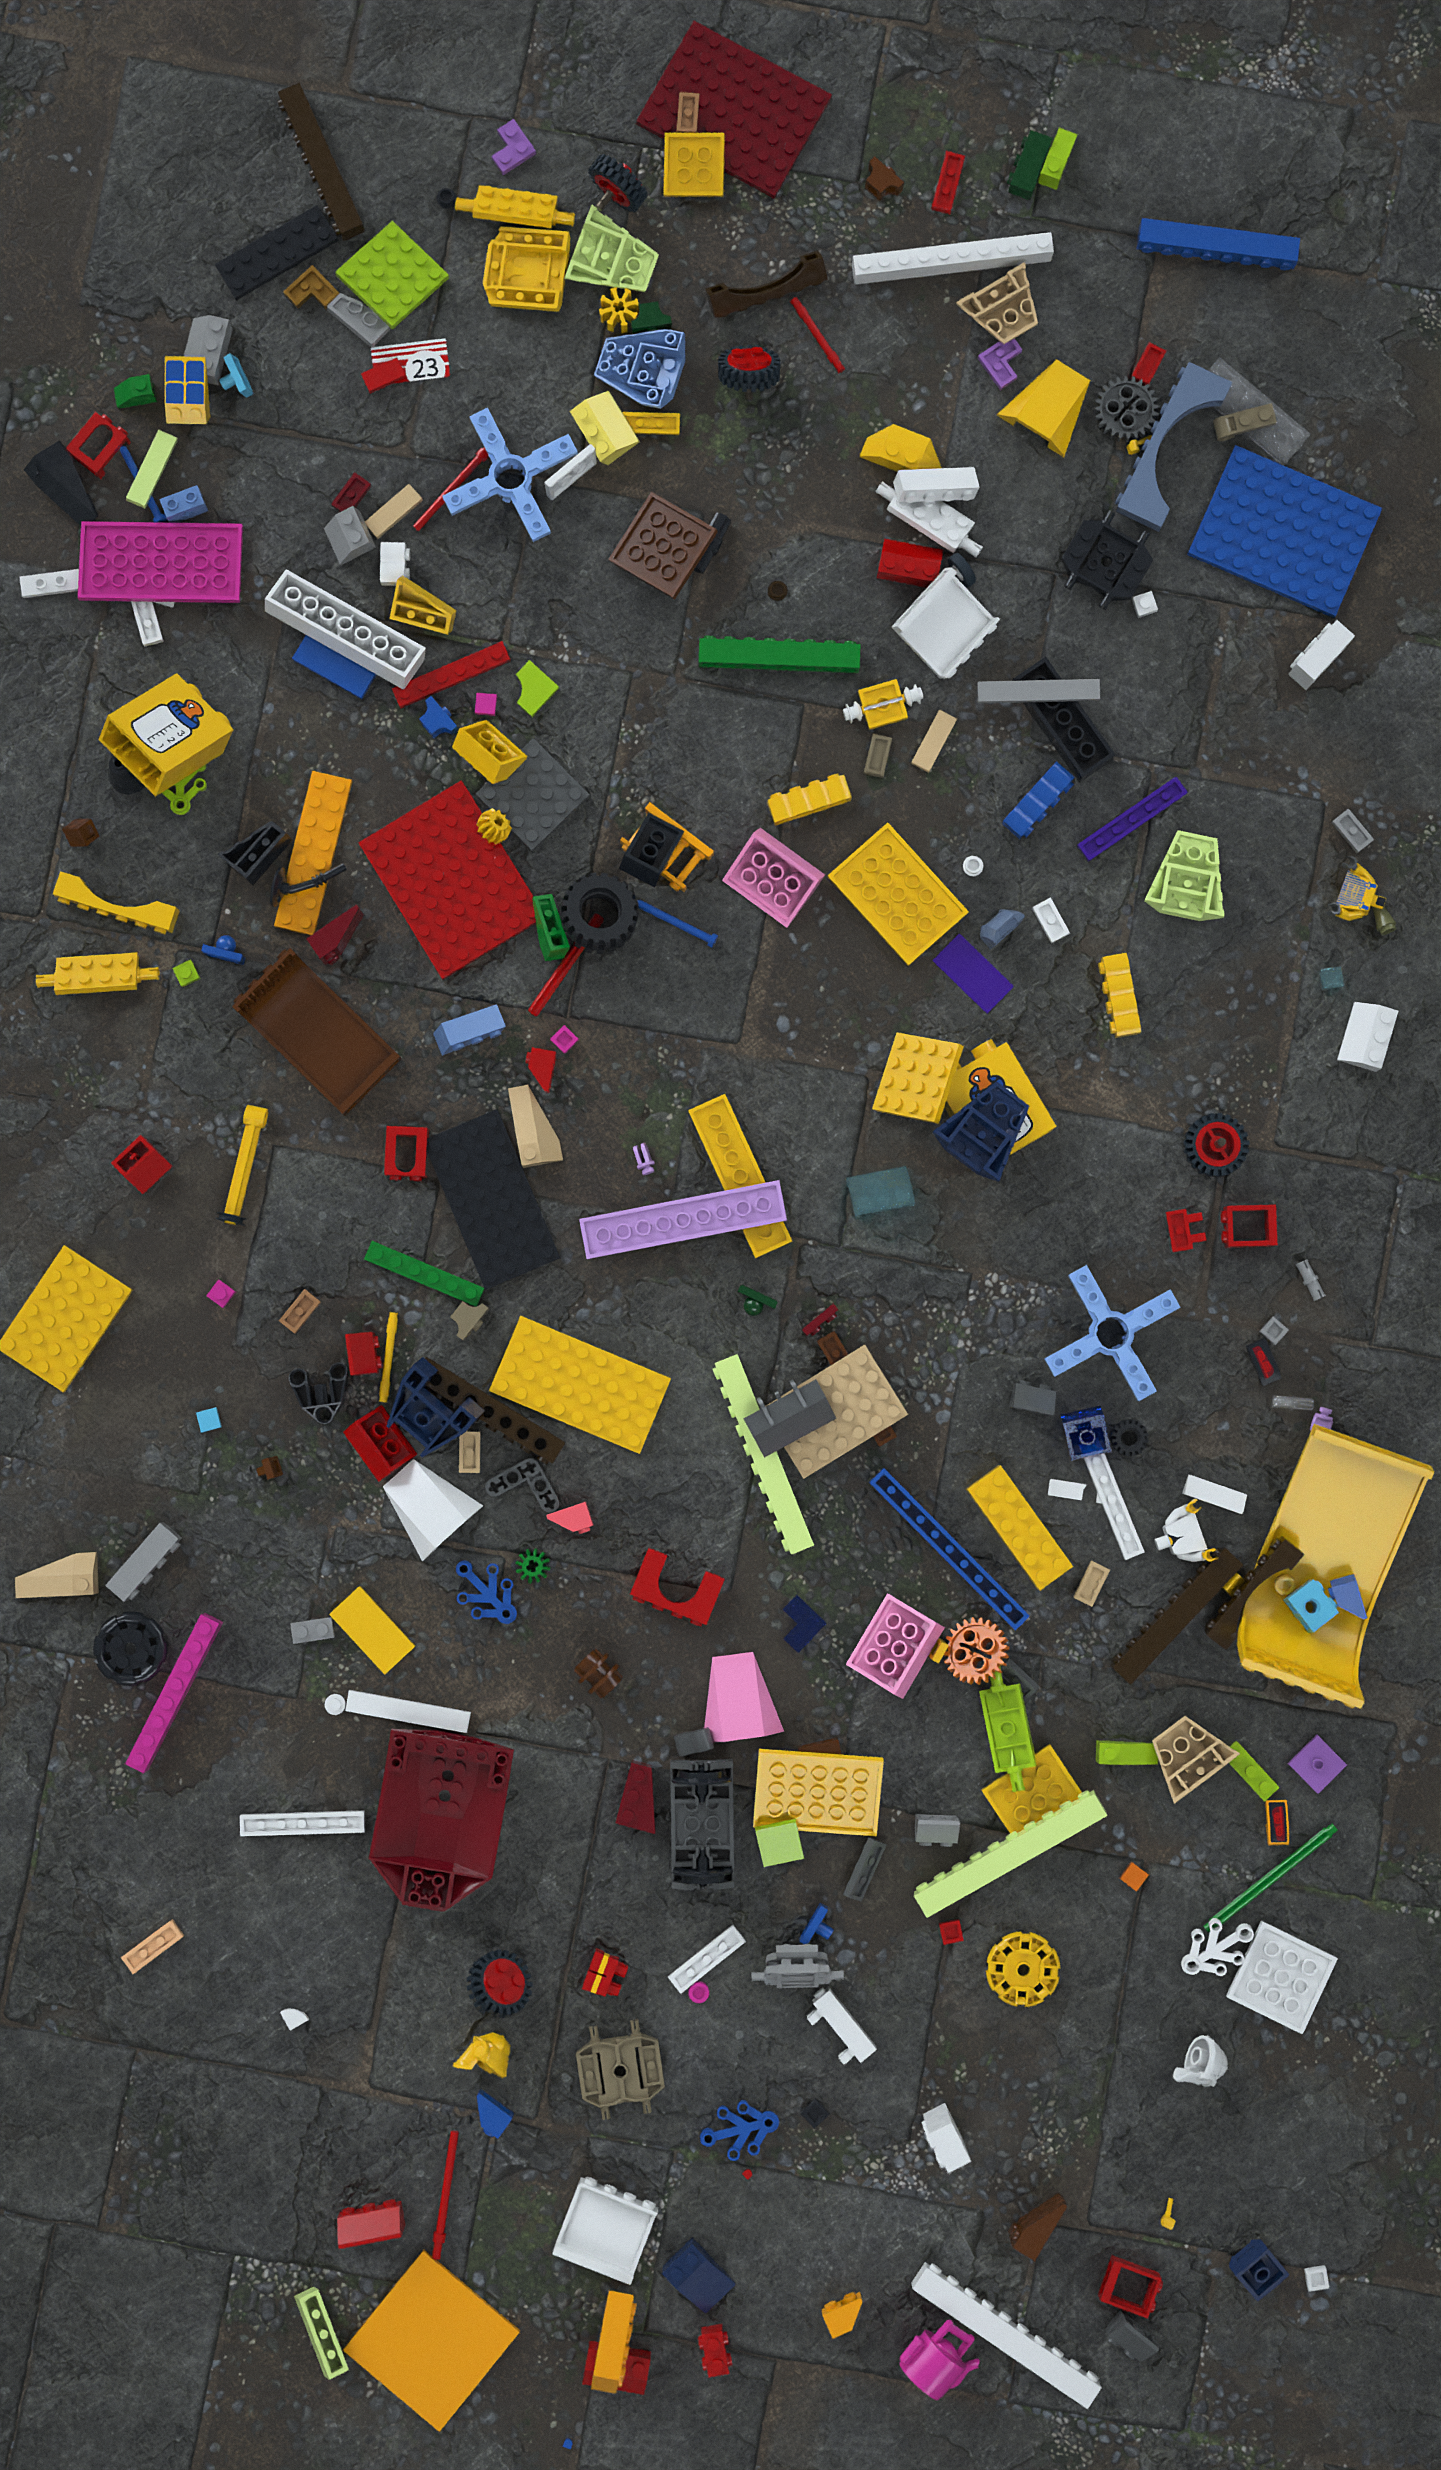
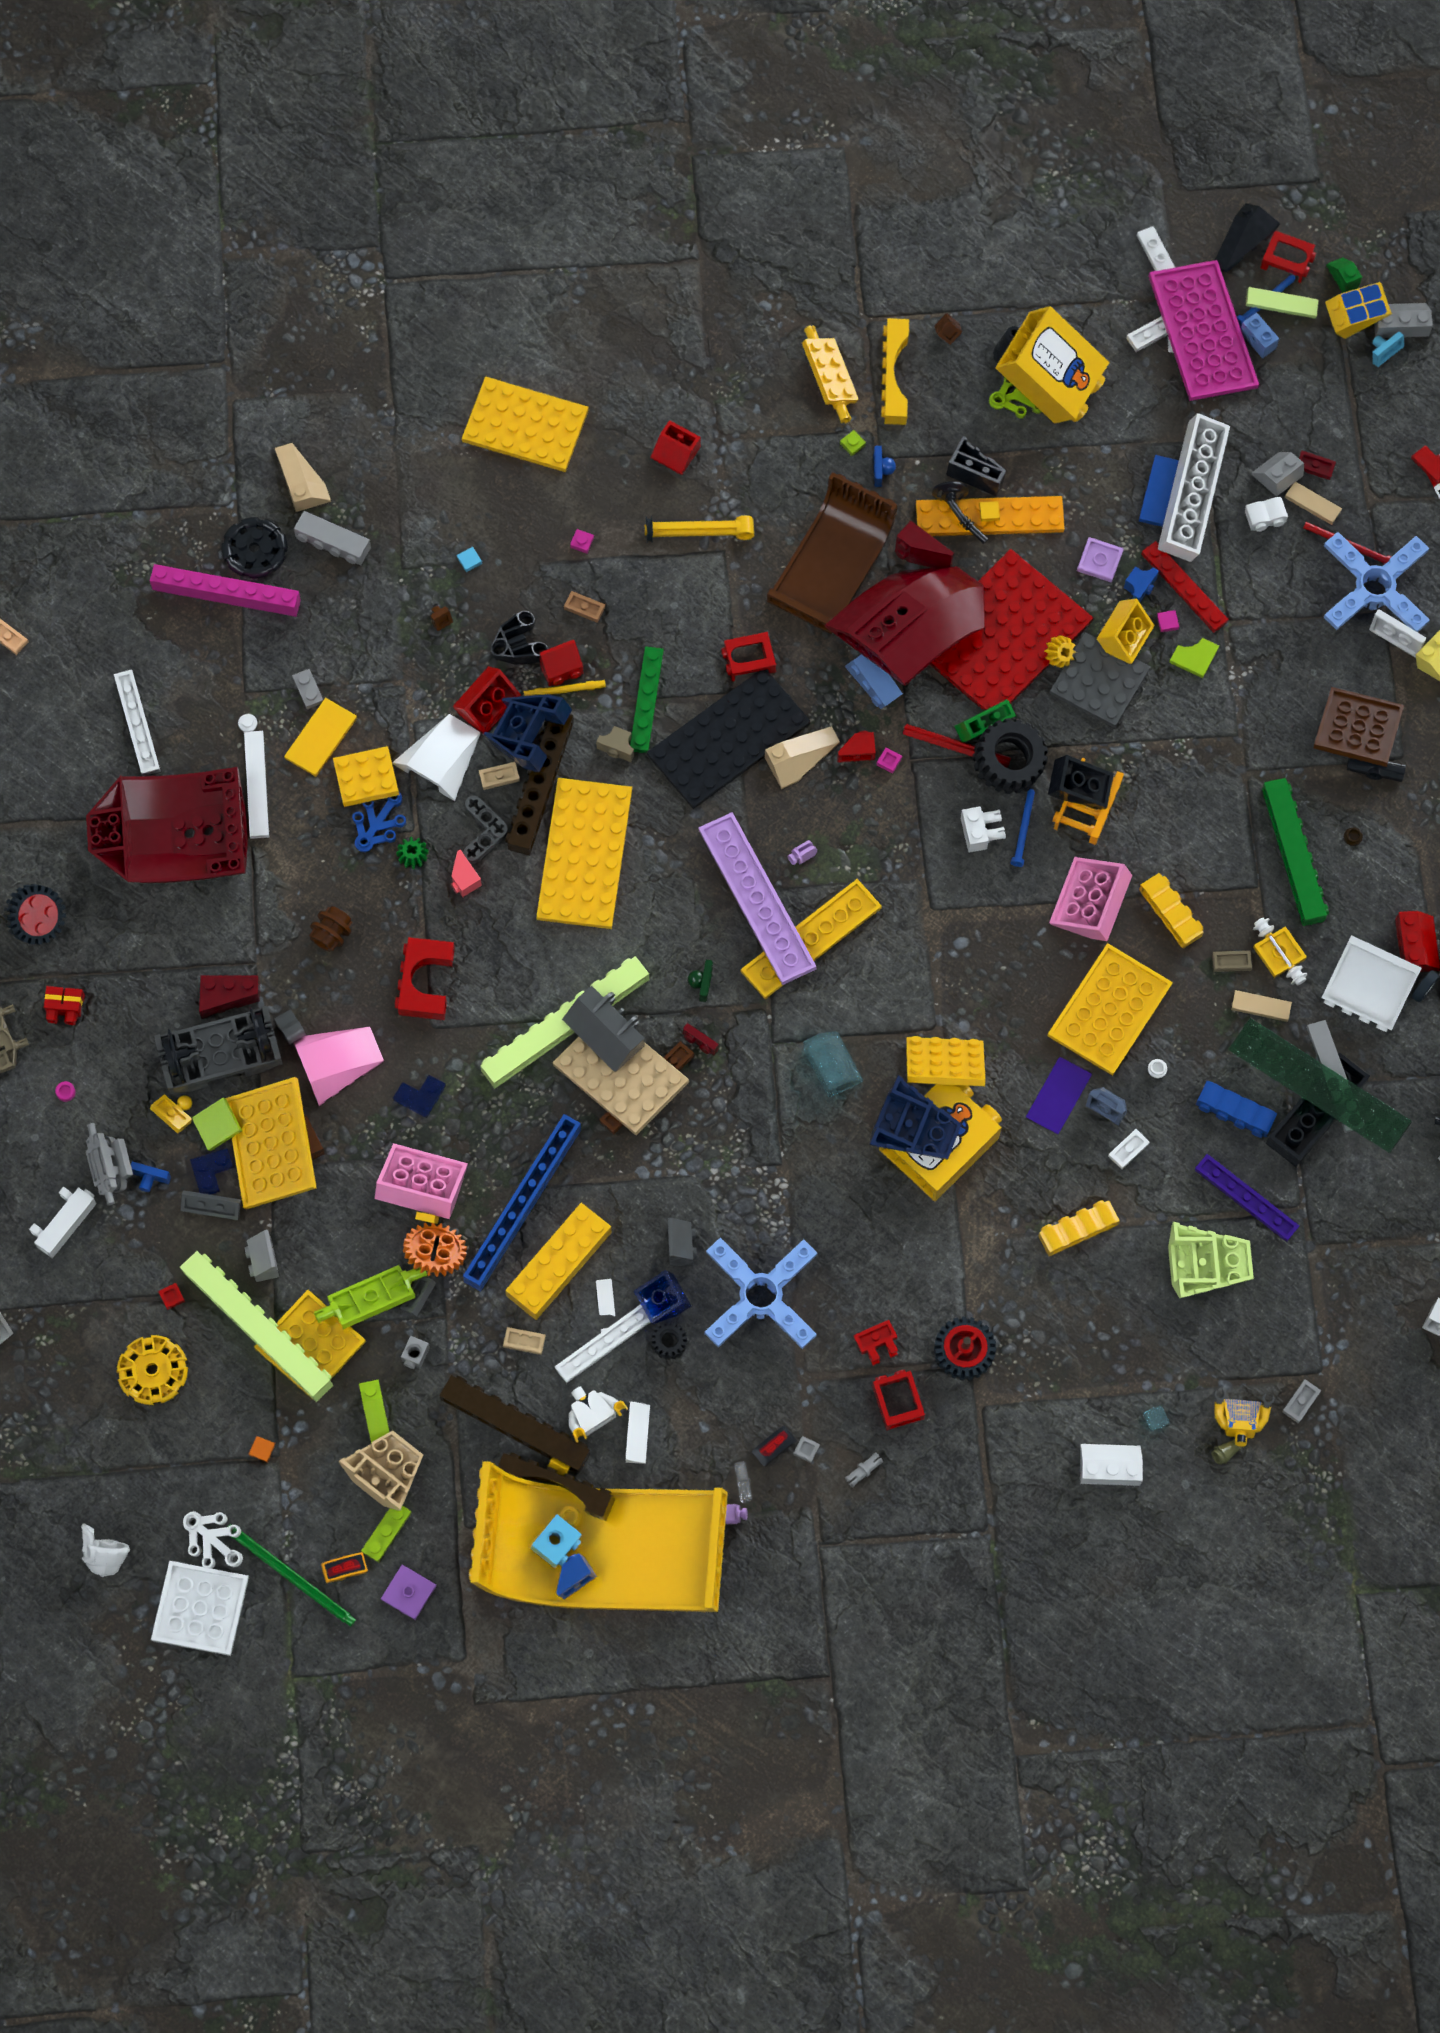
camera: 75 degrees right, 15 degrees down
(311, 852) = (989, 511): none -> yellow tile
(395, 753) = (1100, 559): none -> lavender tile
(418, 933) = (941, 609): none -> dark red wedge
(421, 608) = (1233, 543): yellow wedge -> none
(432, 1593) = (366, 776): none -> yellow plate
(667, 973) = (974, 828): none -> white brick
(706, 1959) = (97, 1090): white tile -> none
(754, 1886) = (173, 1114): none -> yellow plate
(821, 1864) = (207, 1166): none -> clear blue plate
(1048, 709) = (1320, 1085): none -> clear green plate
(1068, 1693) = (415, 1344): none -> light grey brick

